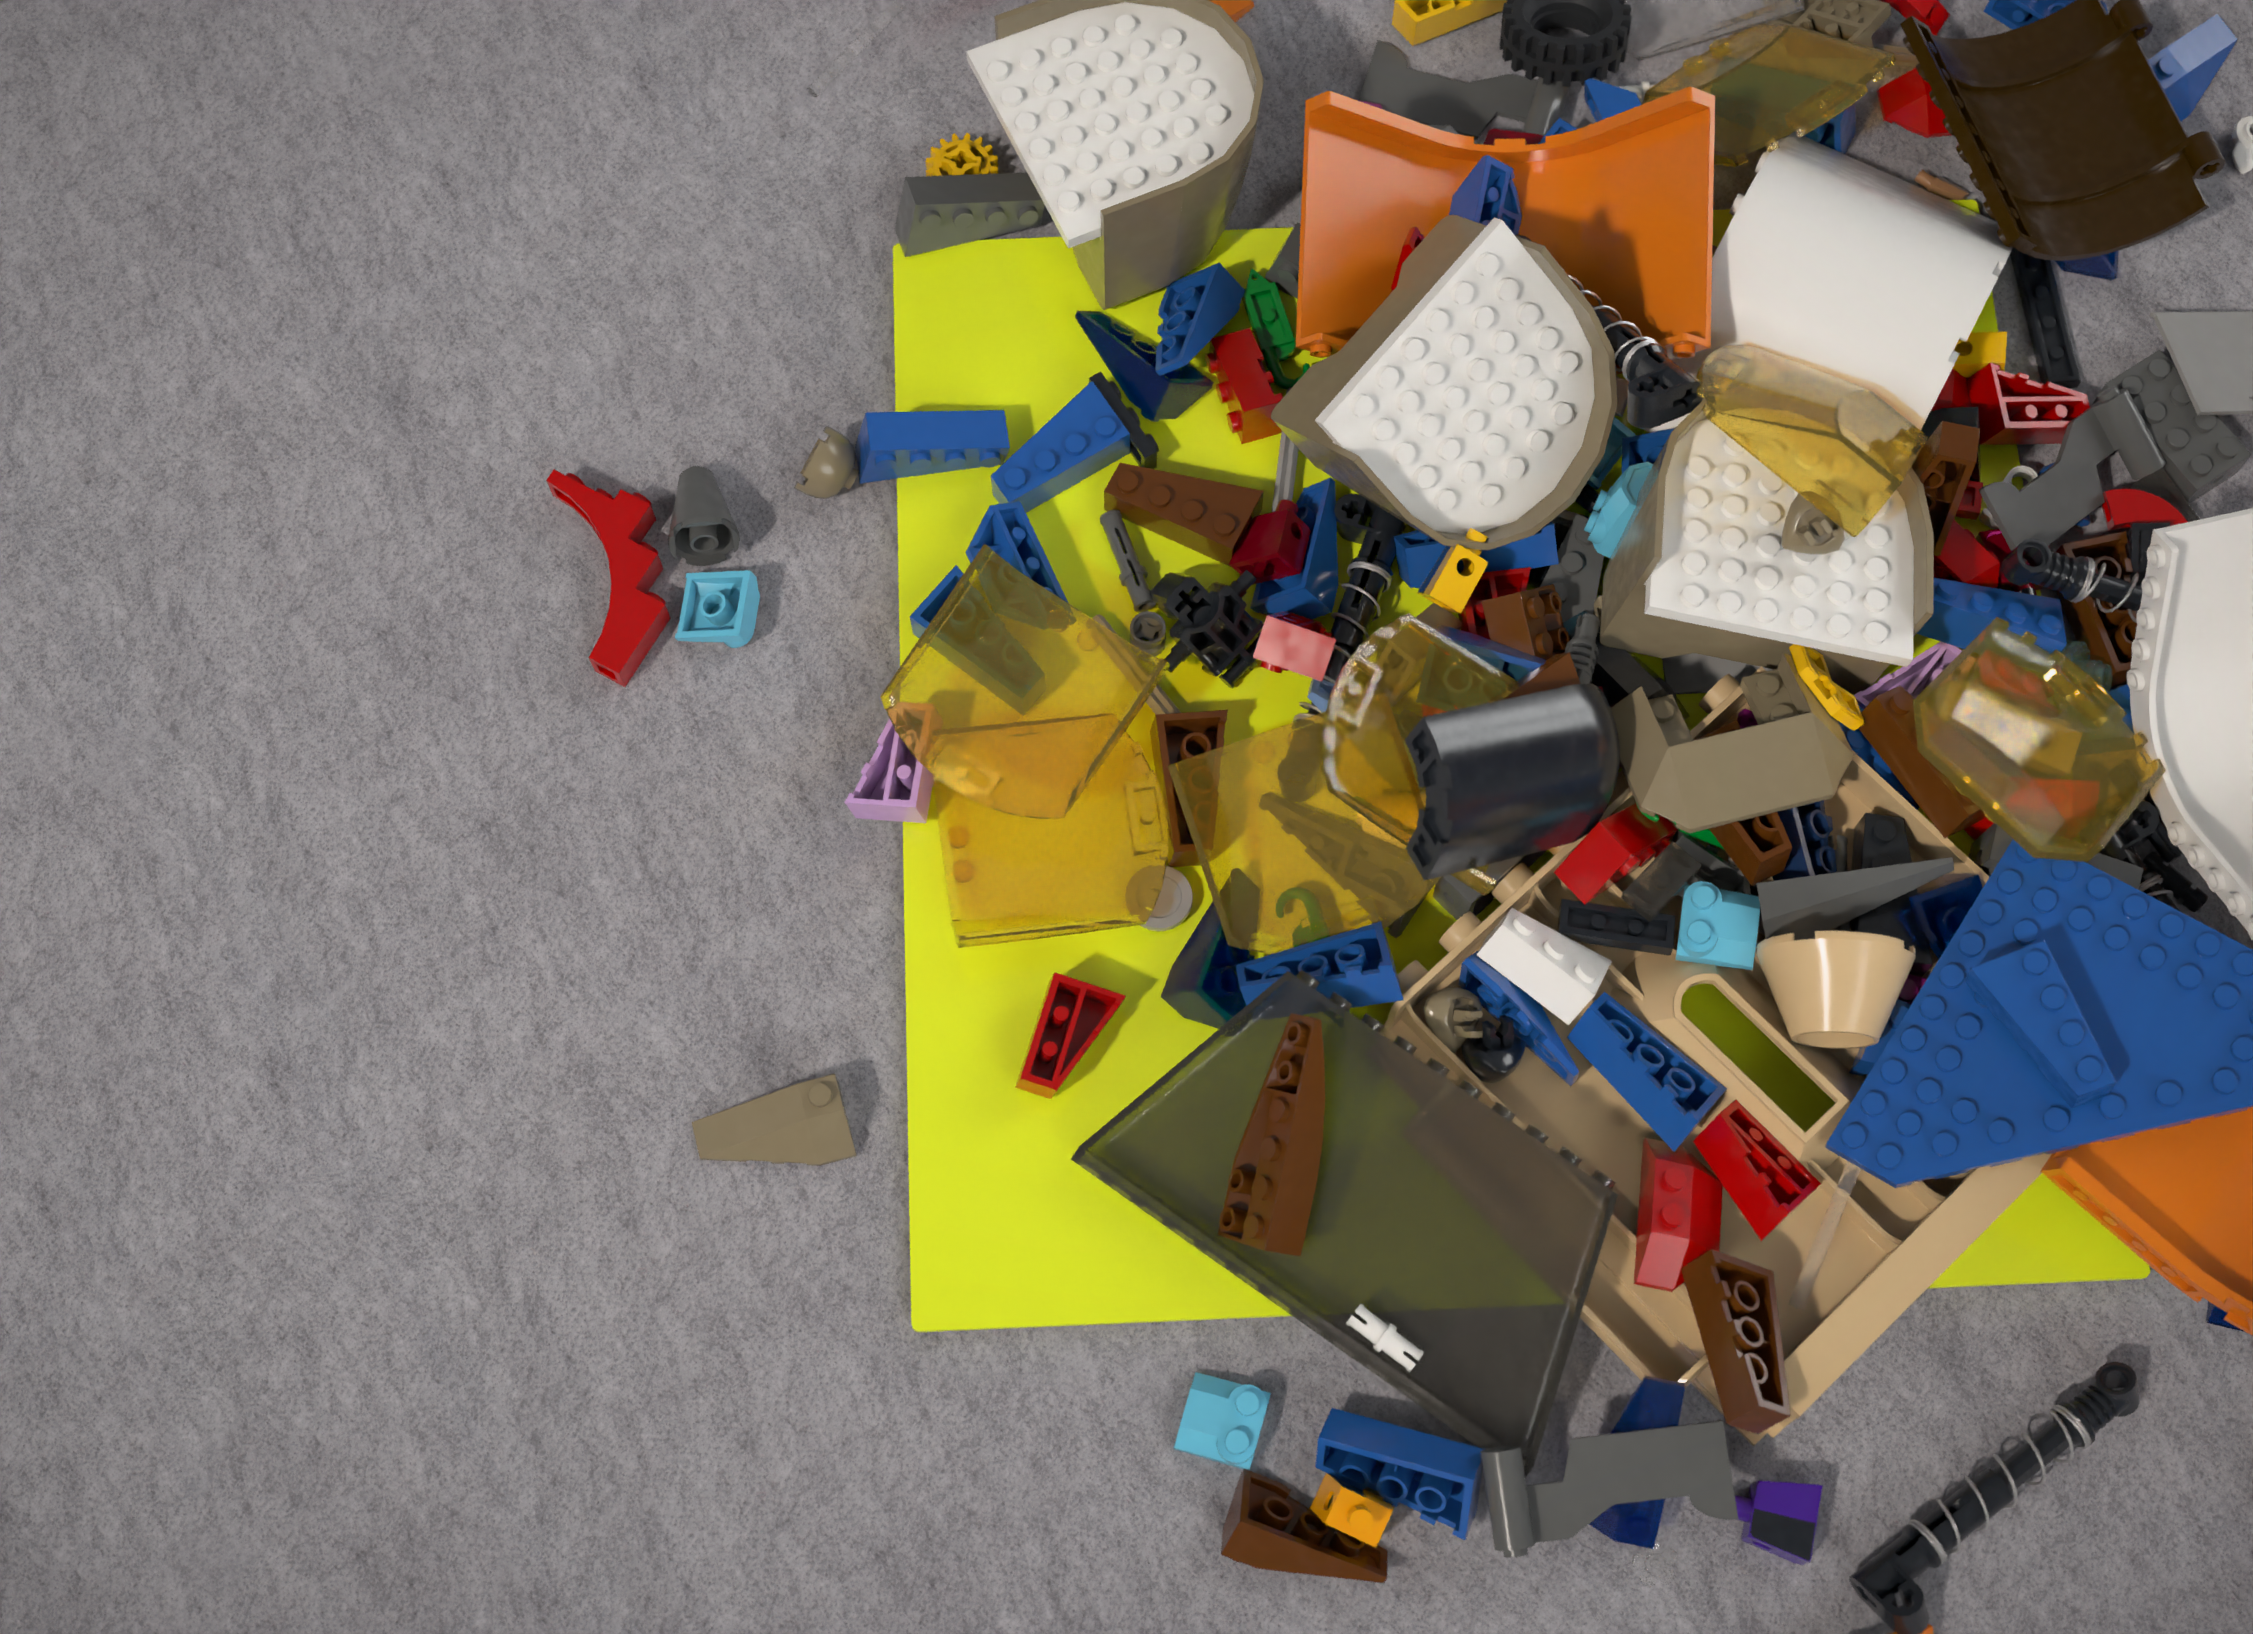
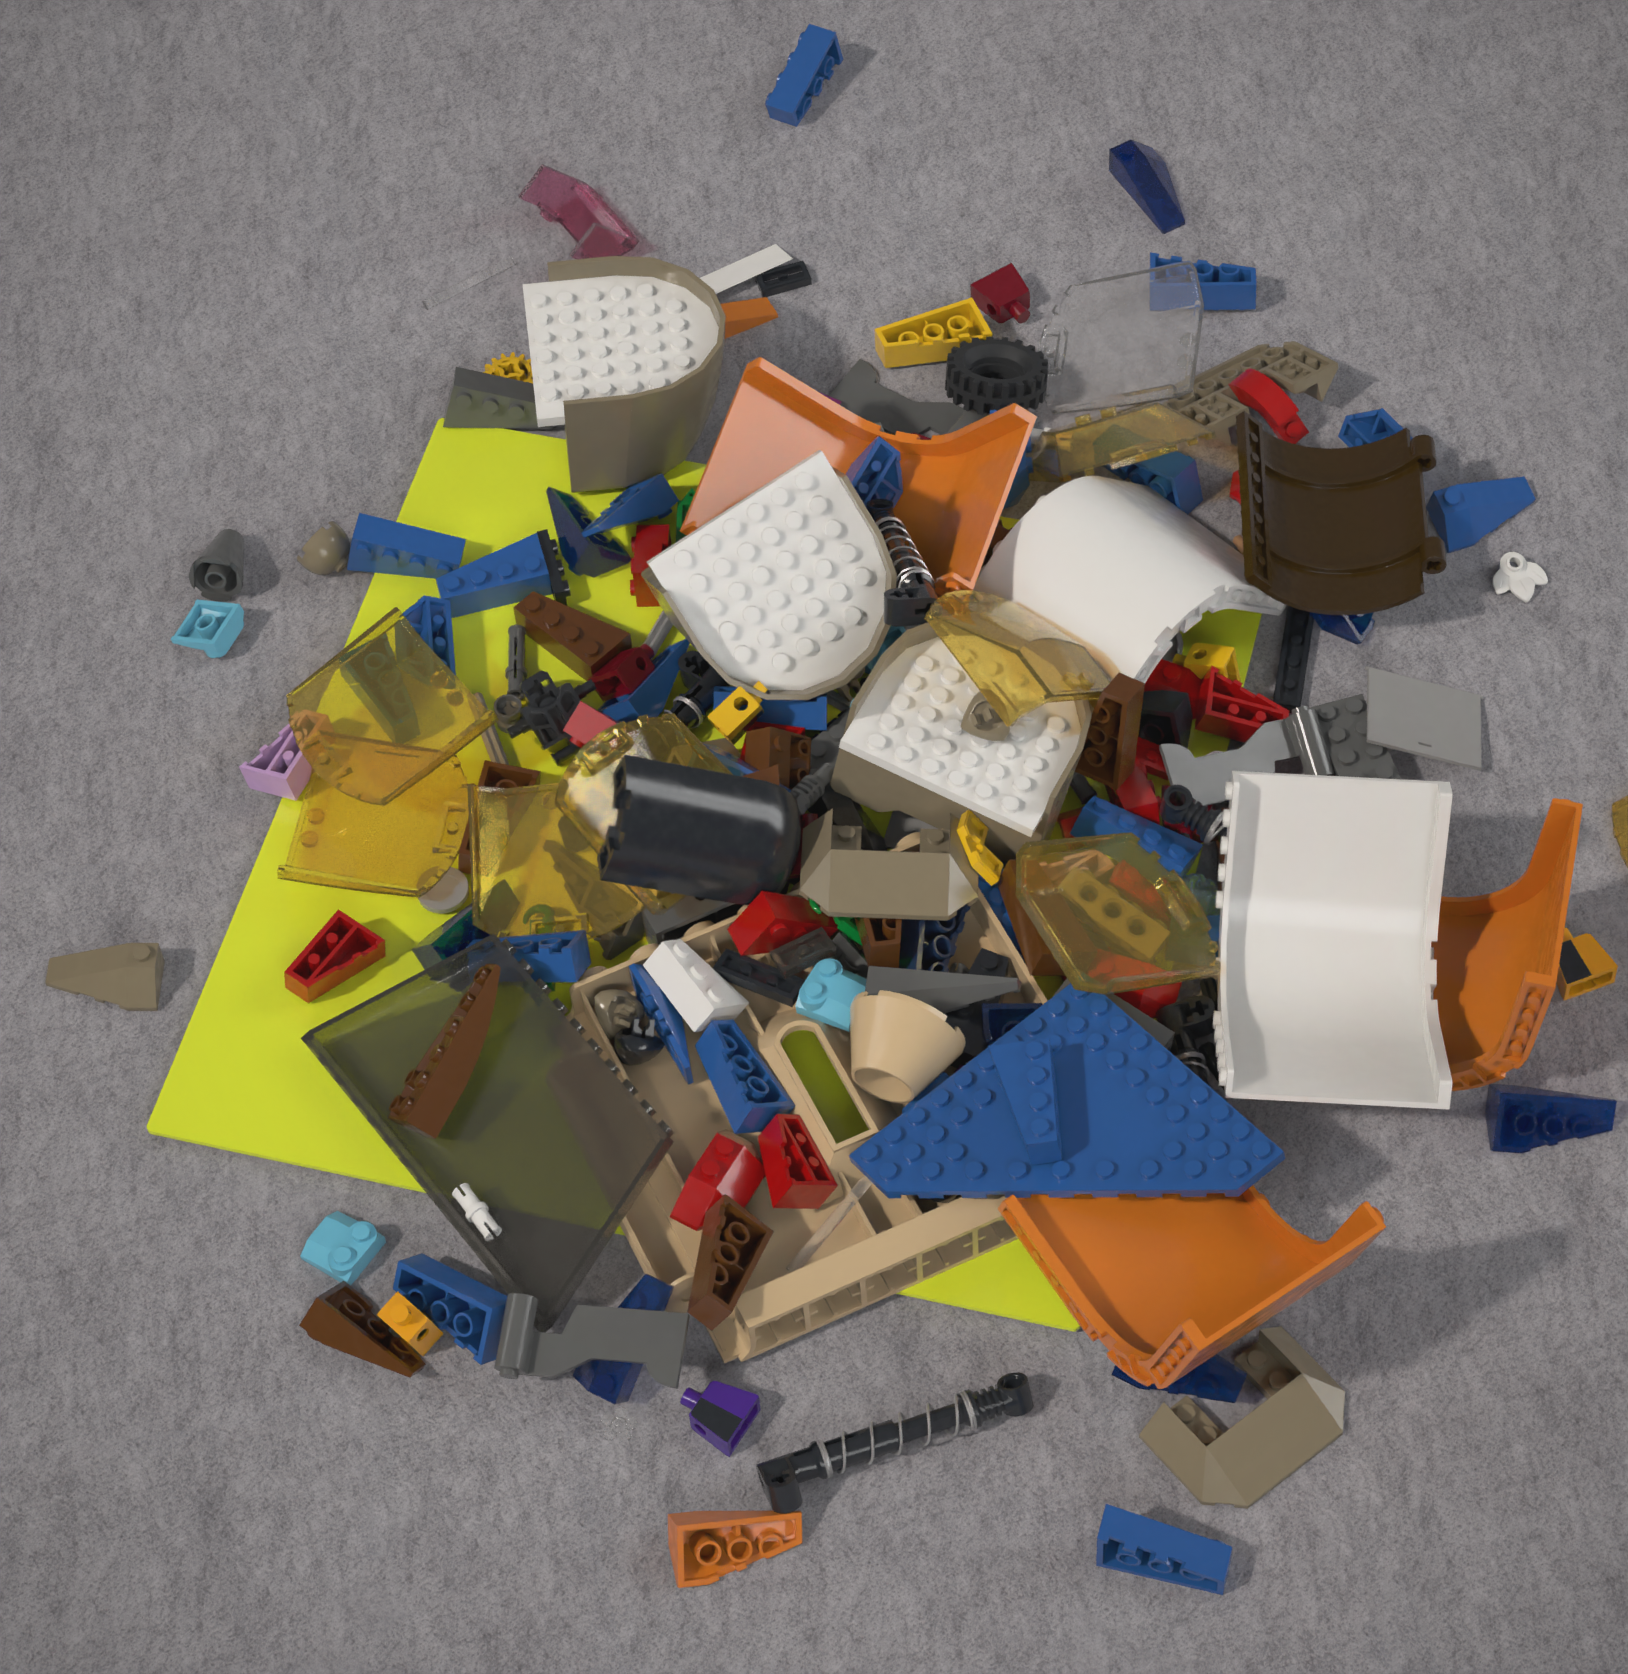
camera: 20 degrees right, 15 degrees down
(634, 612) = (149, 616): red arch -> none

